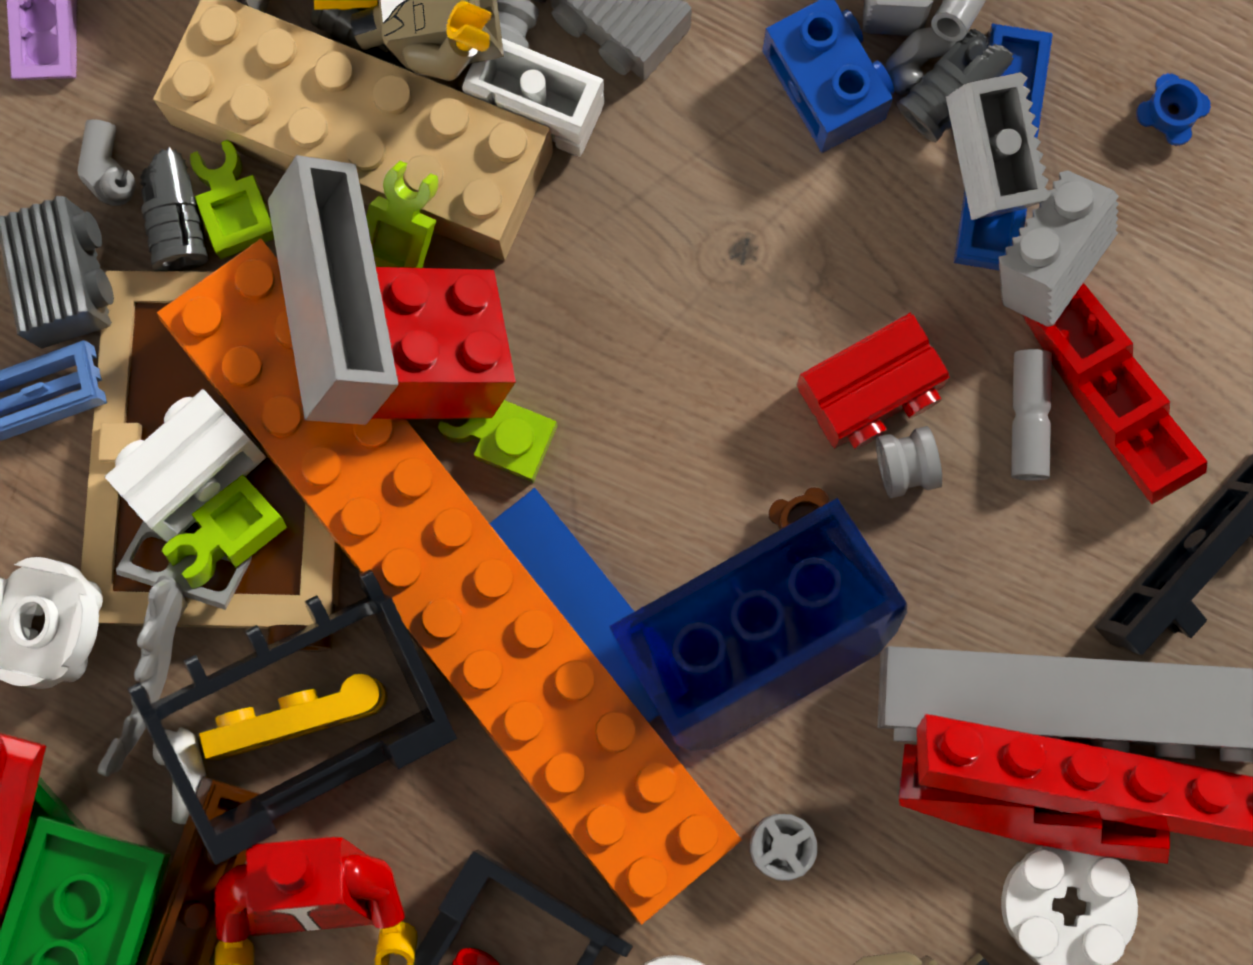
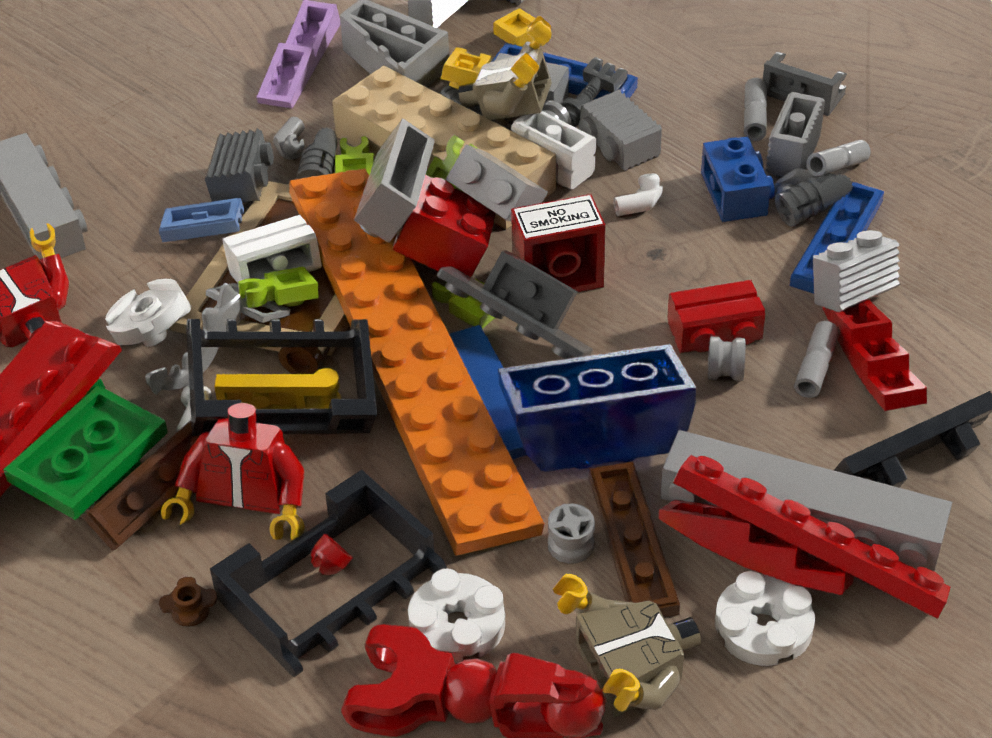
camera: 15 degrees right, 35 degrees down
(489, 253) = (493, 182): none -> light grey brick
(590, 452) = (524, 296): none -> dark grey bracket
(611, 324) = (562, 240): none -> red brick
(696, 144) = (643, 199): none -> white arm
(864, 822) = (633, 537): none -> reddish brown tile
(997, 146) = (827, 206): light grey brick -> none
(1177, 92) = (954, 238): blue plate -> none

